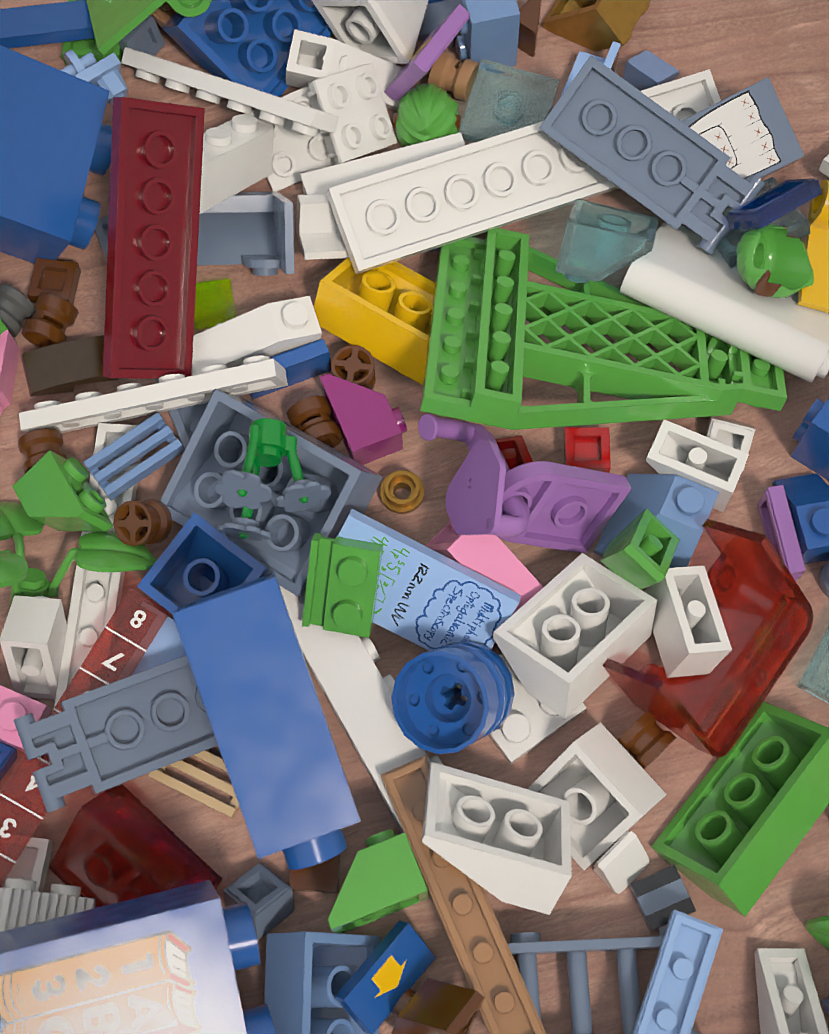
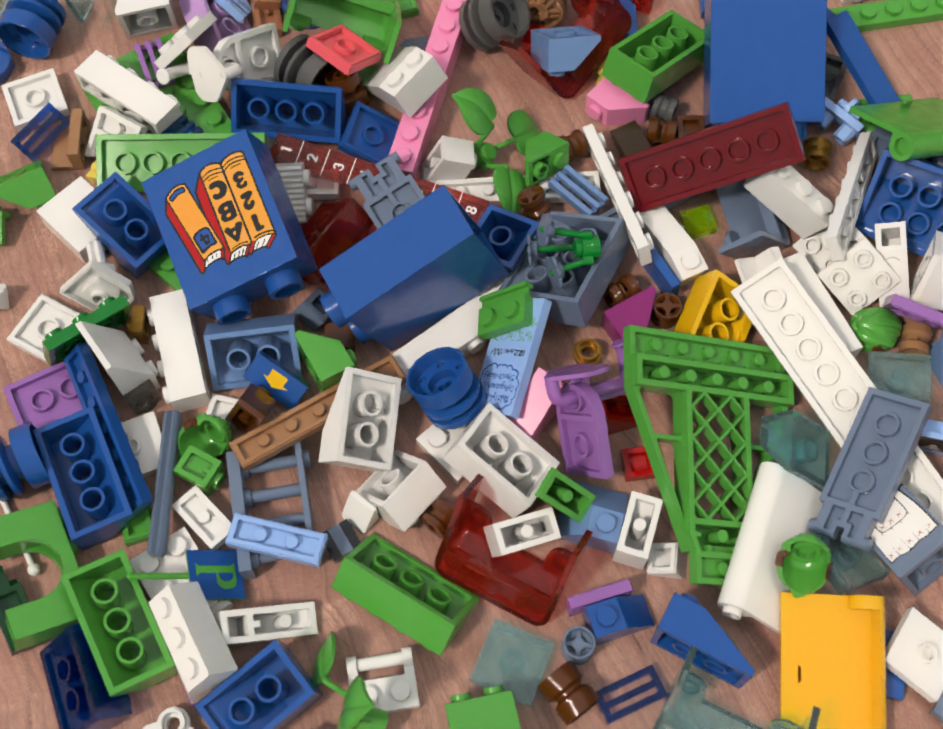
camera: 80 degrees right, 5 degrees down
(774, 204) = (851, 558): clear blue tile -> none

